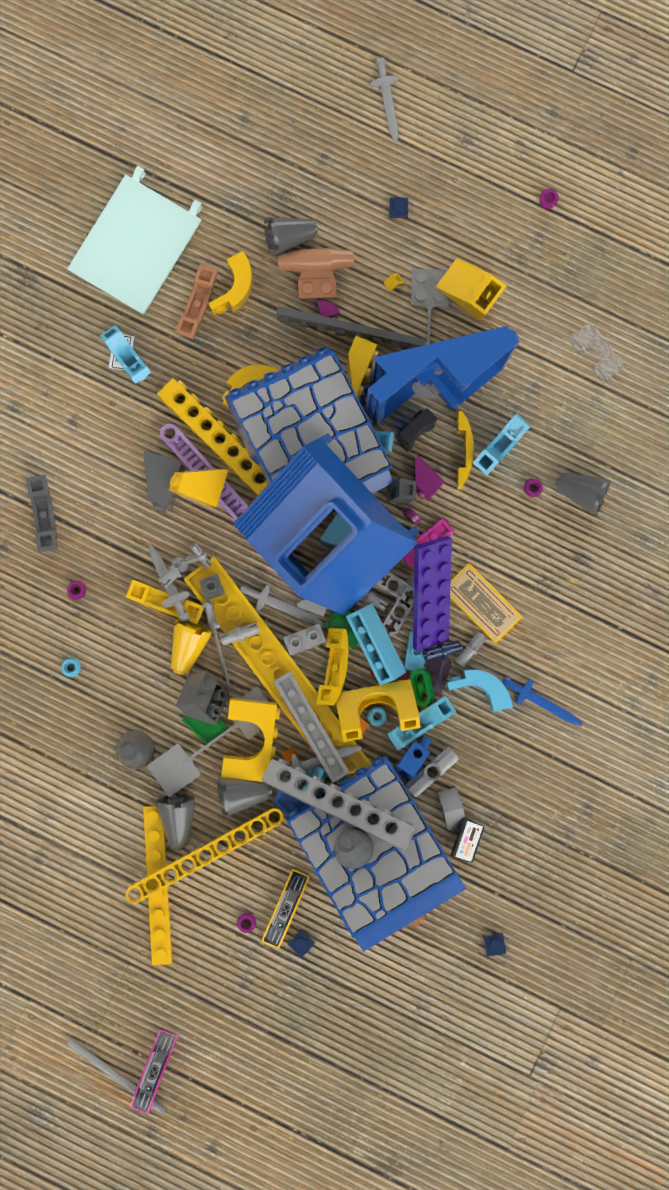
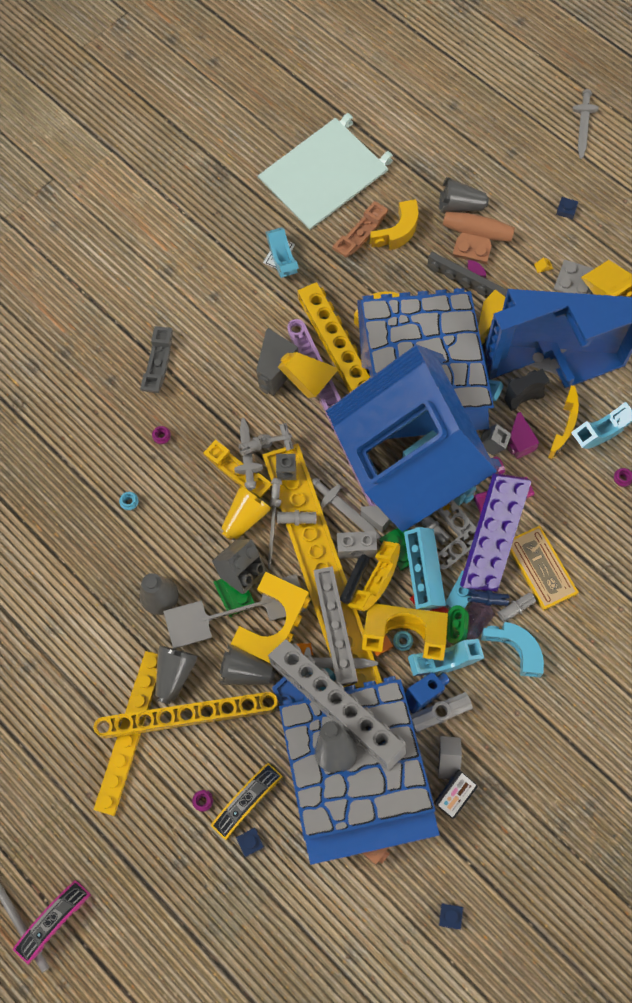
camera: 25 degrees right, 15 degrees down
(314, 674) = (355, 579): none -> black axle
(526, 693) = (559, 666): blue sword -> none

